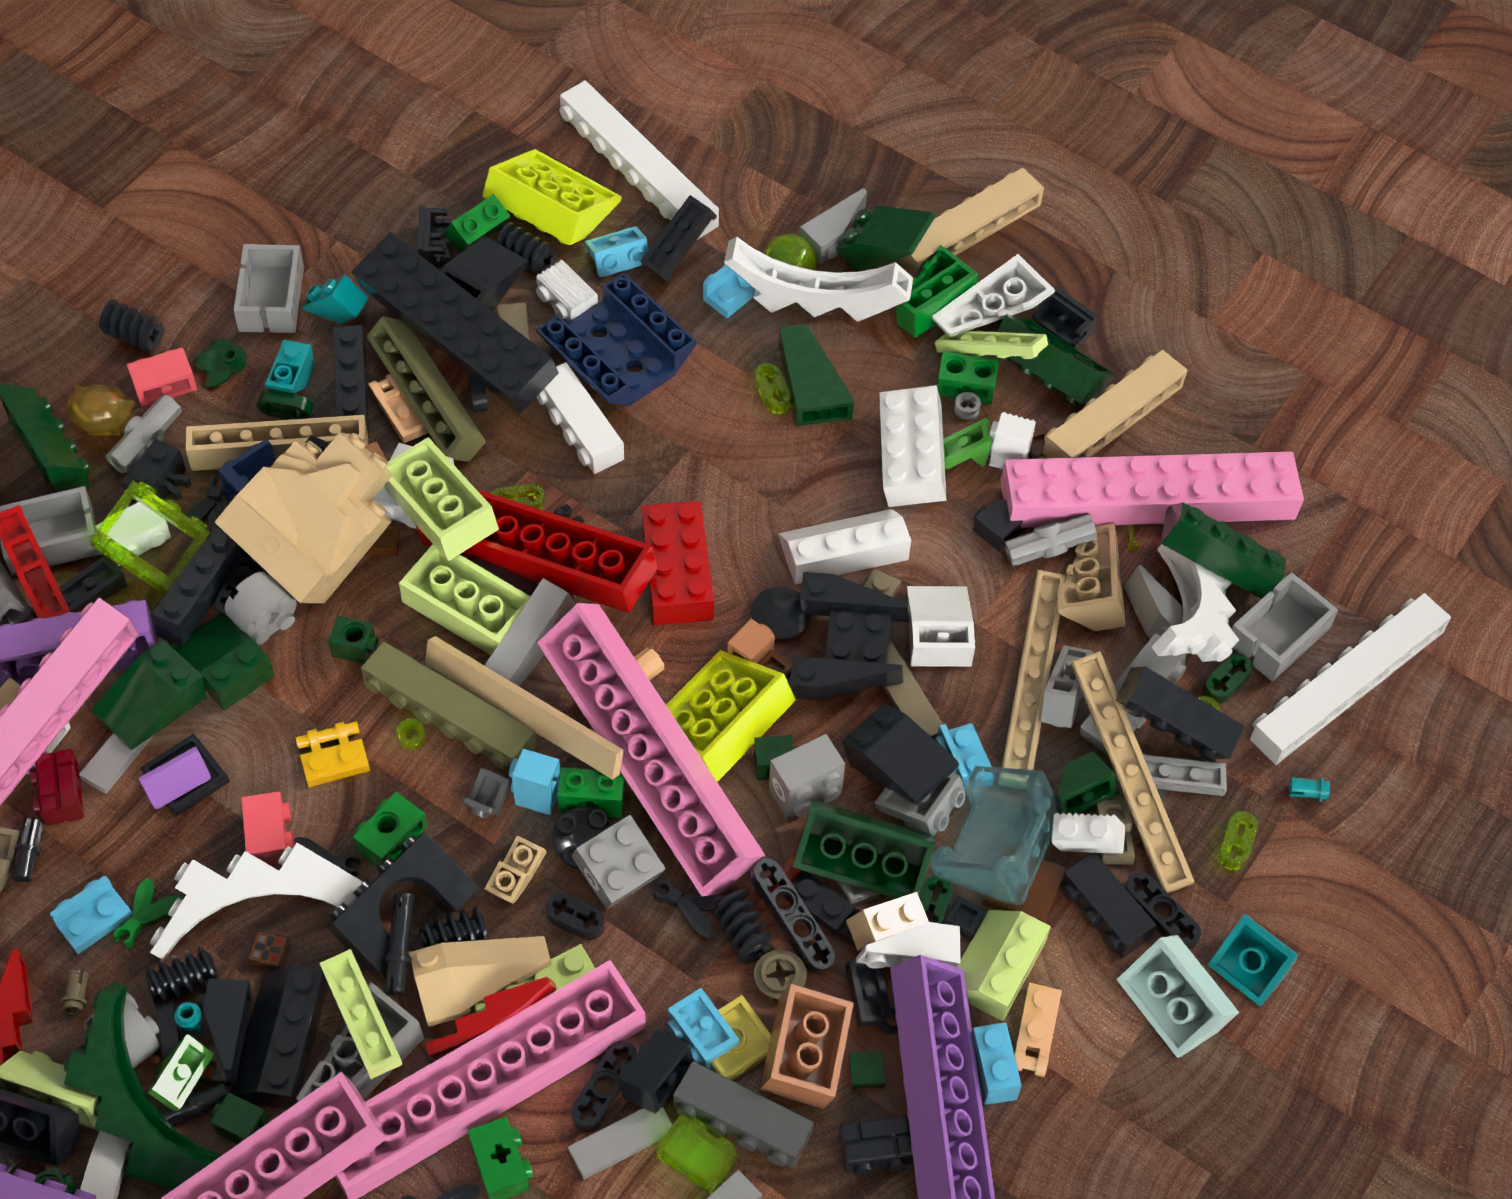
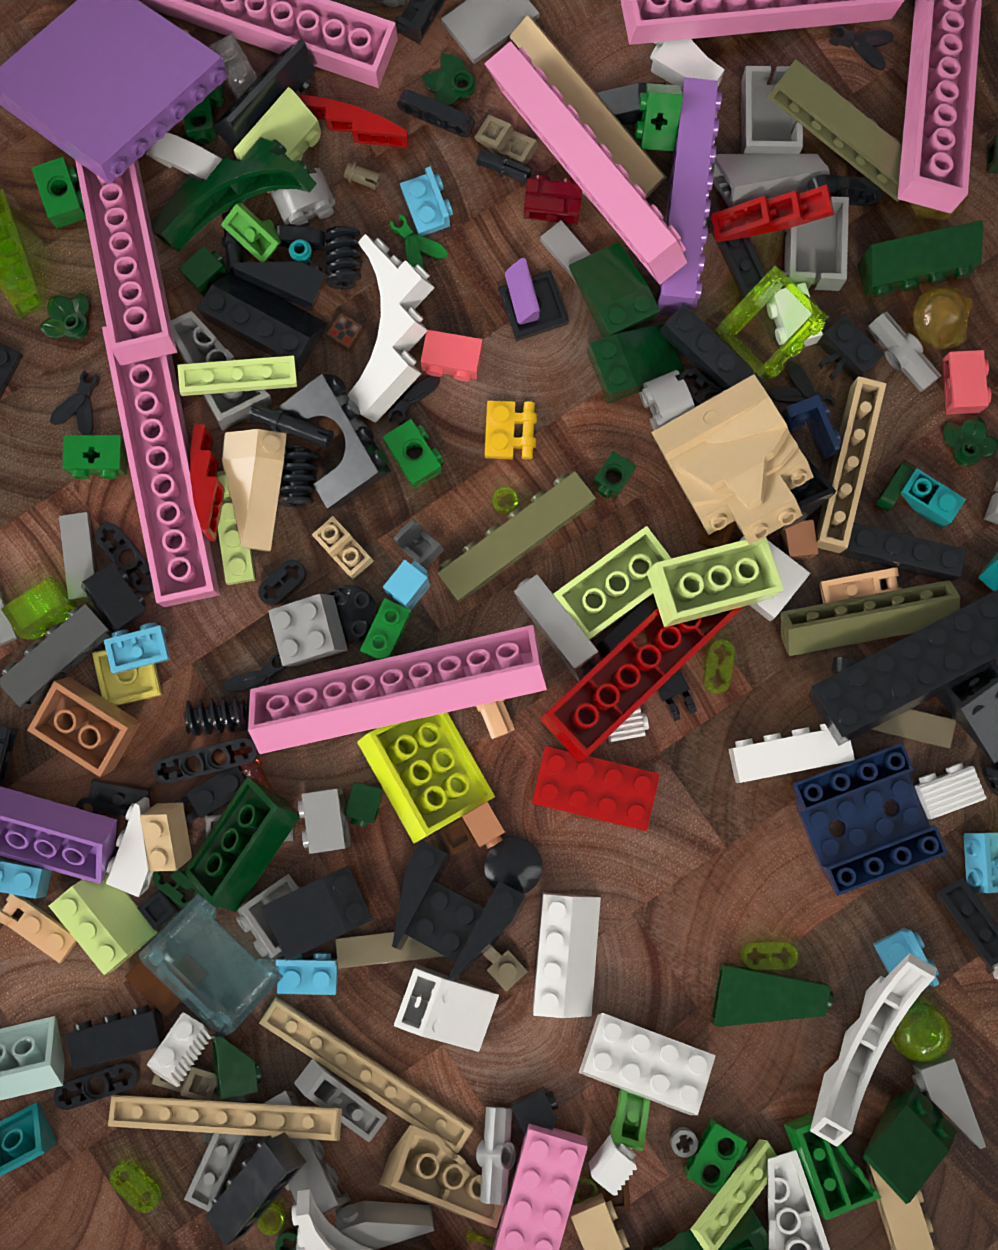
camera: 115 degrees right, 25 degrees up
(524, 707) = (482, 597): tan tile -> none
(767, 967) = (154, 740): dark tan gear -> none
(866, 1069) = (59, 772): dark green tile -> none

